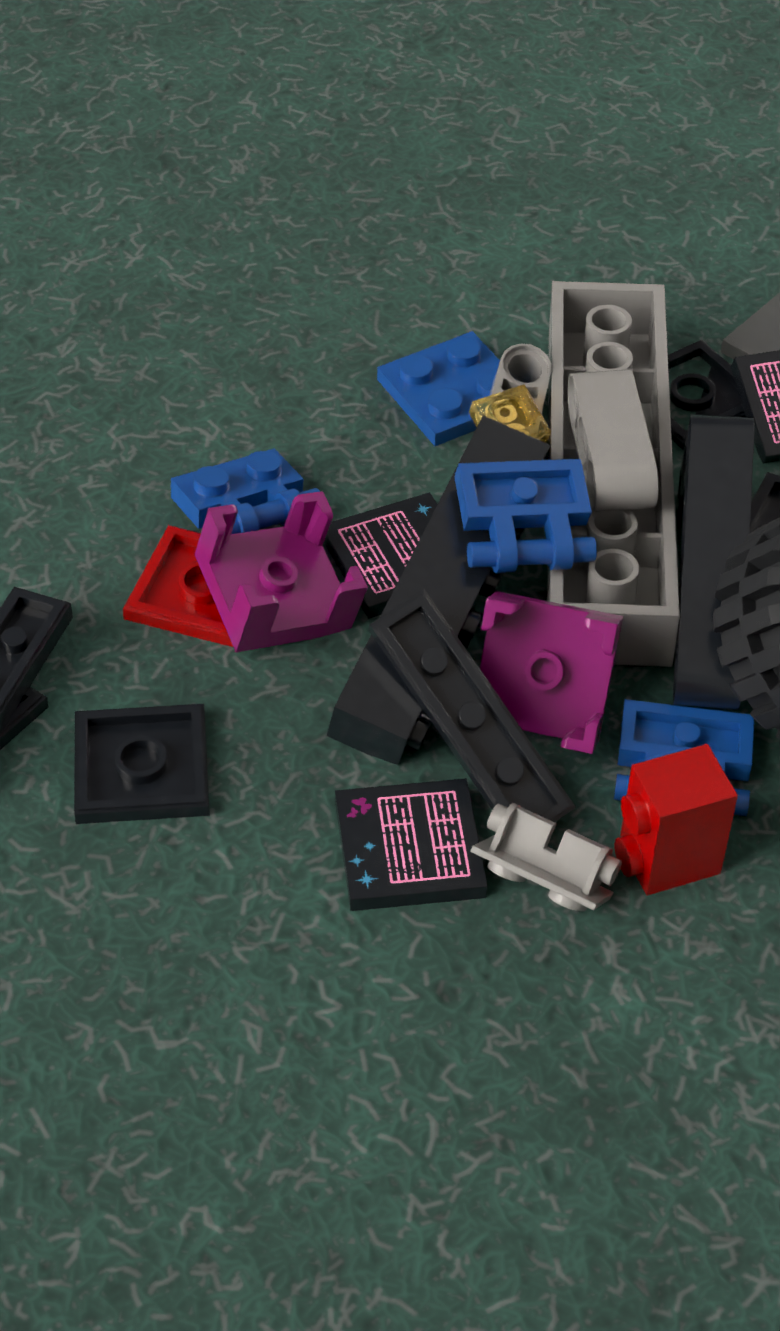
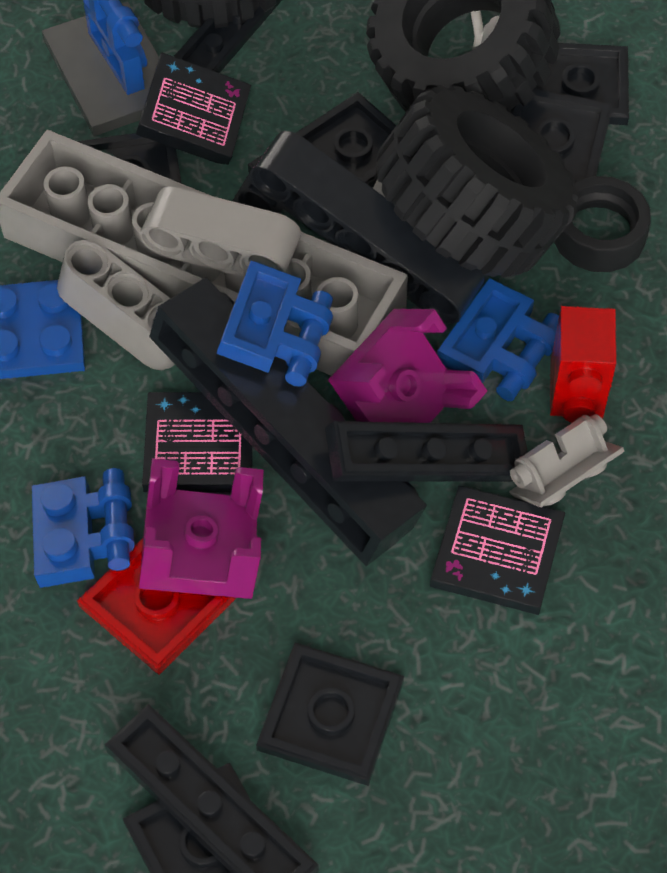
camera: 65 degrees left, 10 degrees up
(513, 409) = (137, 295): clear yellow tile -> none

